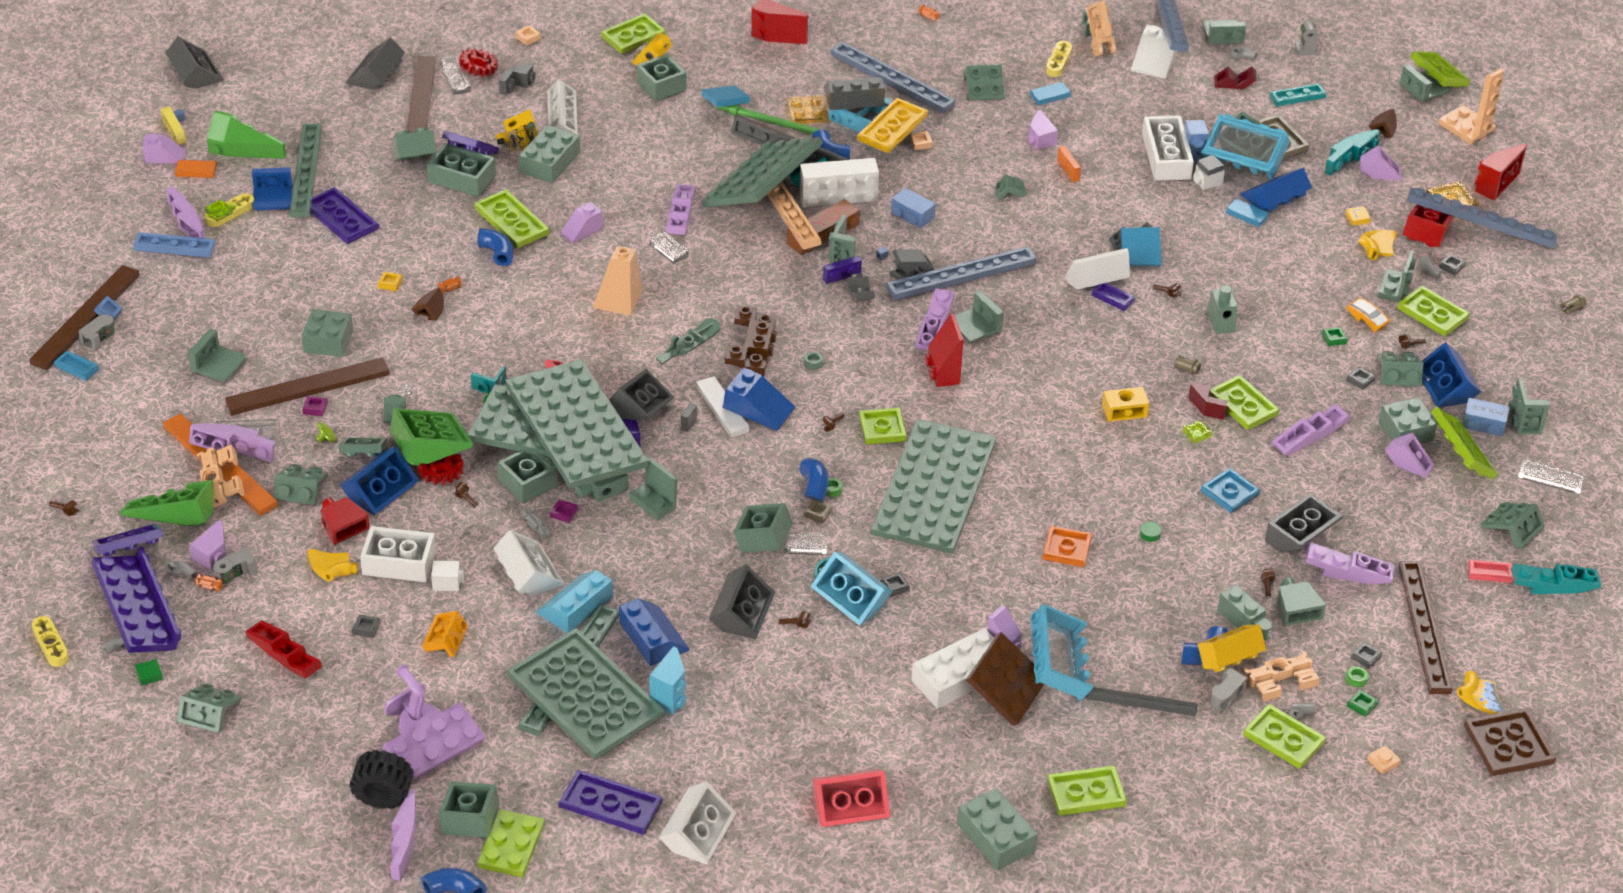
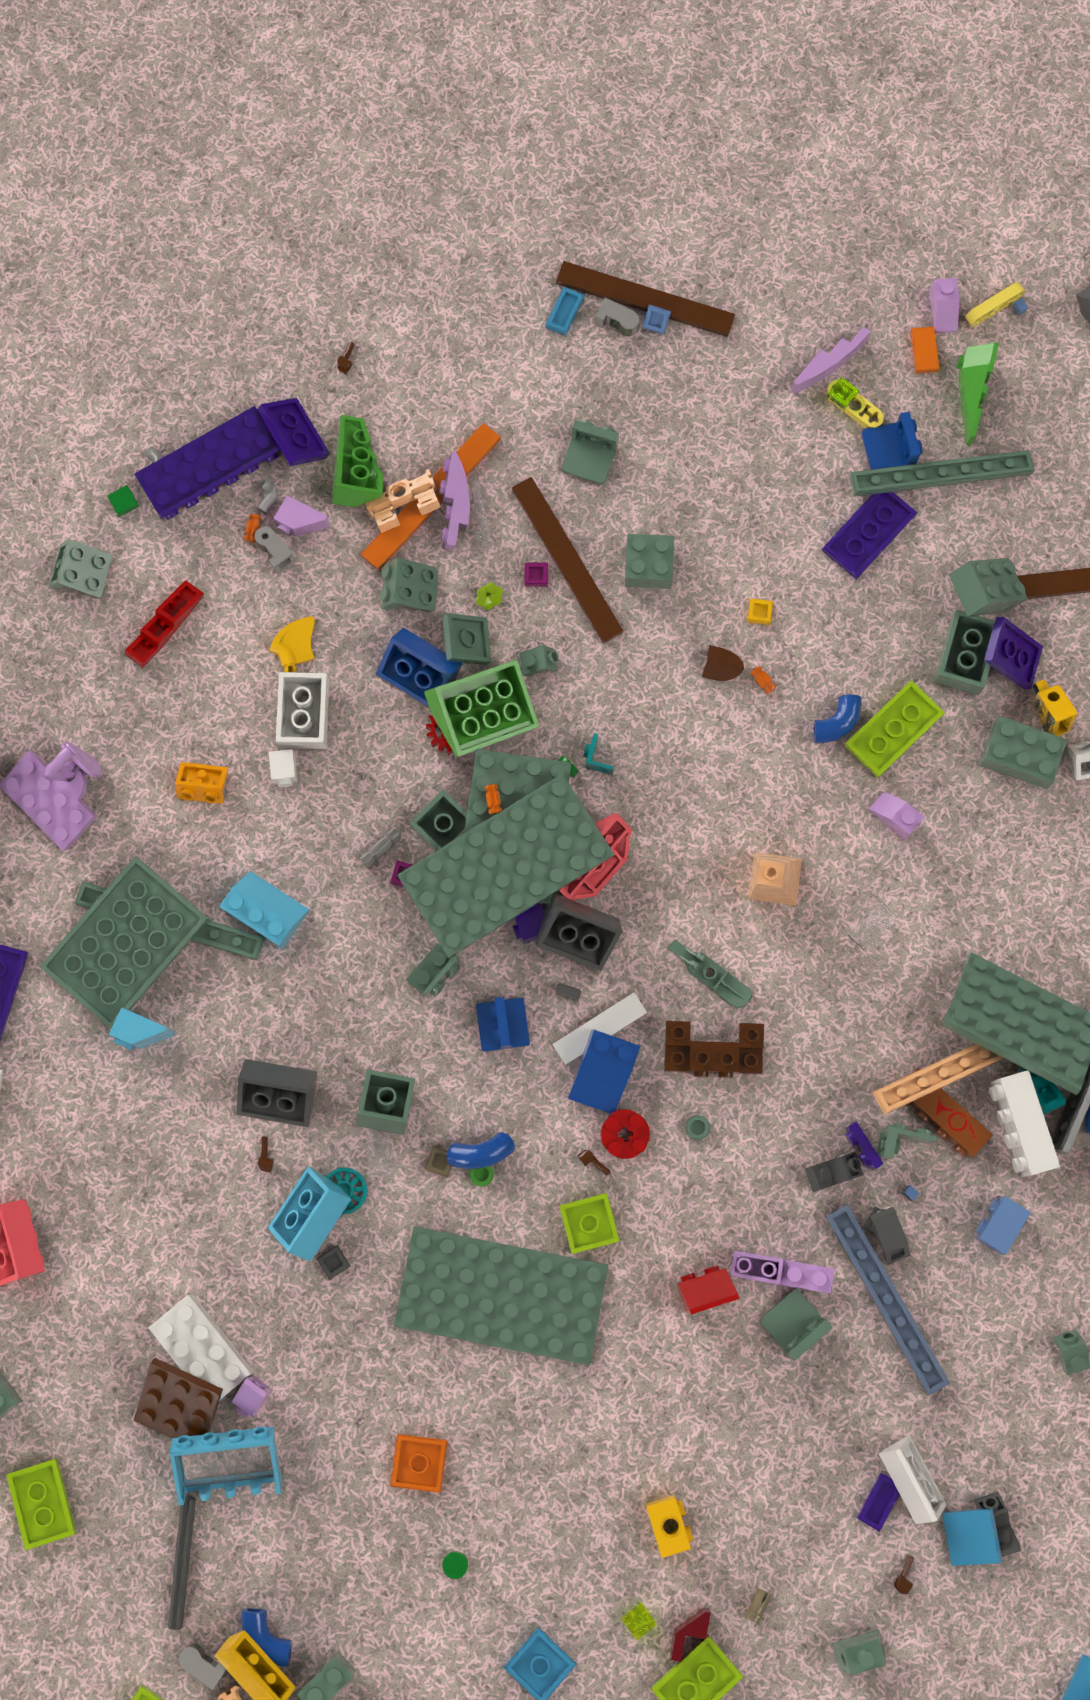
camera: 85 degrees right, 35 degrees up
(51, 633) = (154, 387): light yellow beam -> none
(174, 244) = (779, 360): medium blue plate -> none
(343, 519) = (355, 640): red torso -> none
(366, 626) = (209, 699): dark grey tile -> none
(461, 492) = (419, 758): reddish brown hand -> none
(516, 422) = (493, 799): none -> orange piece
(527, 564) = (310, 851): white slope -> none
(650, 630) = (226, 1001): blue slope -> none
(681, 209) = (950, 929): lavender slope -> none
(708, 459) = (502, 1024): none -> blue bracket
(805, 391) = (636, 1142): none -> red plate

